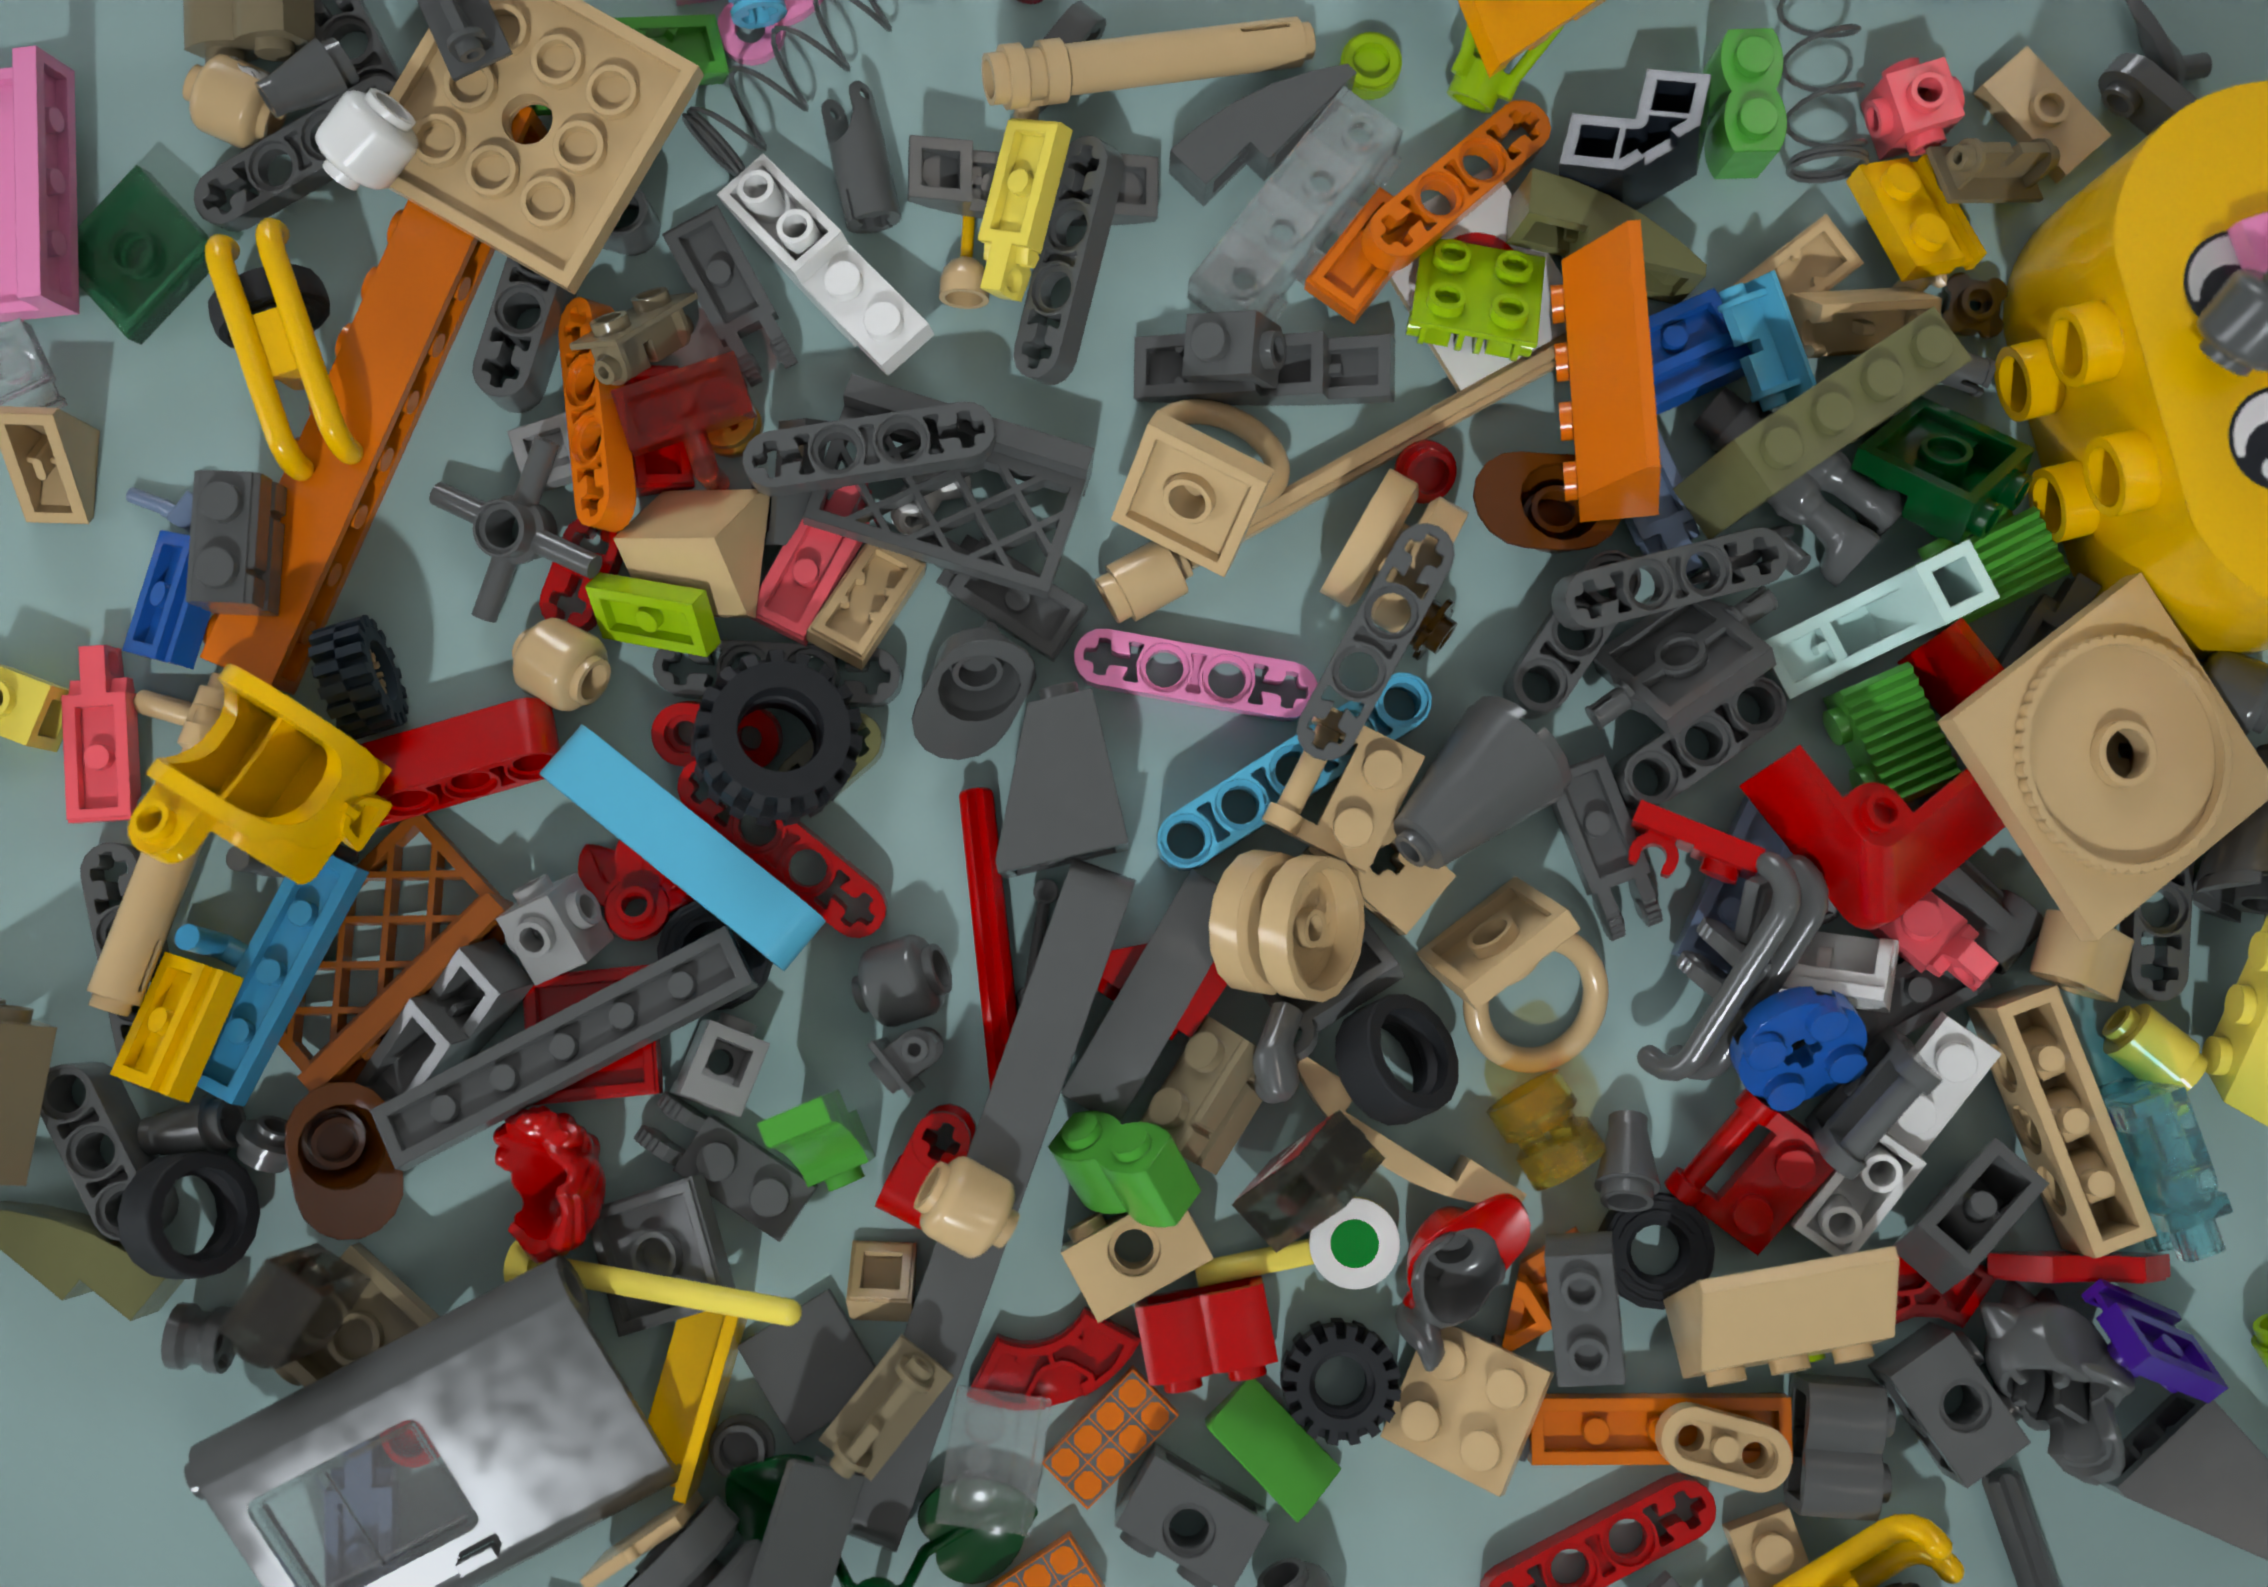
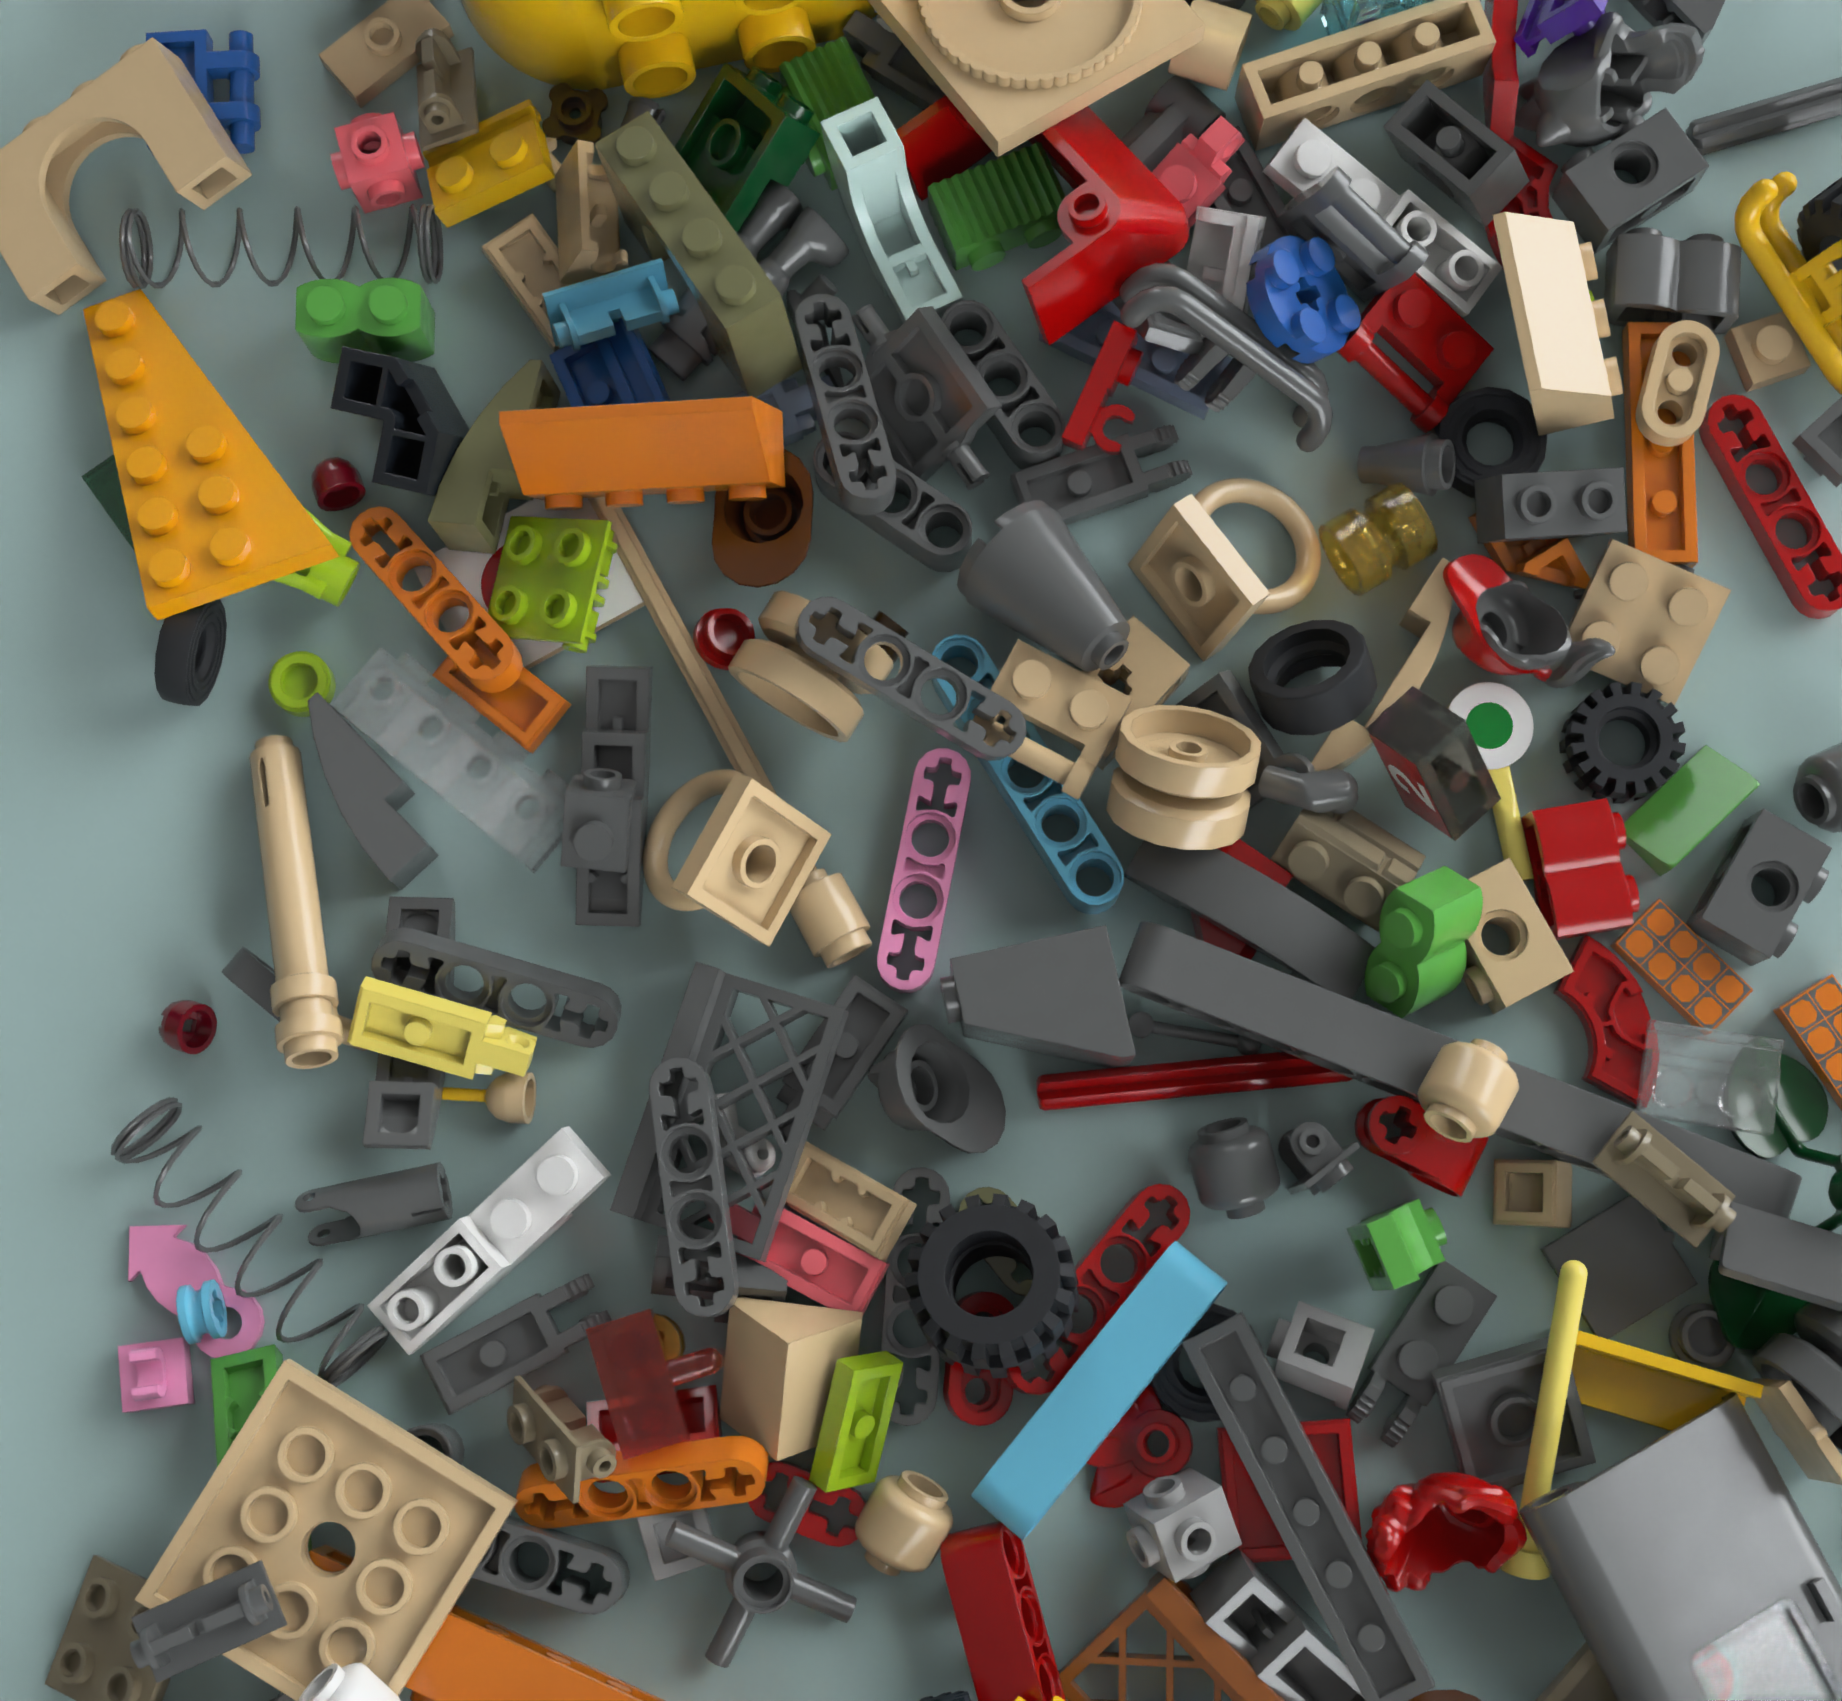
camera: 80 degrees left, 5 degrees down
(1572, 87) = (337, 484): none -> dark red hinge

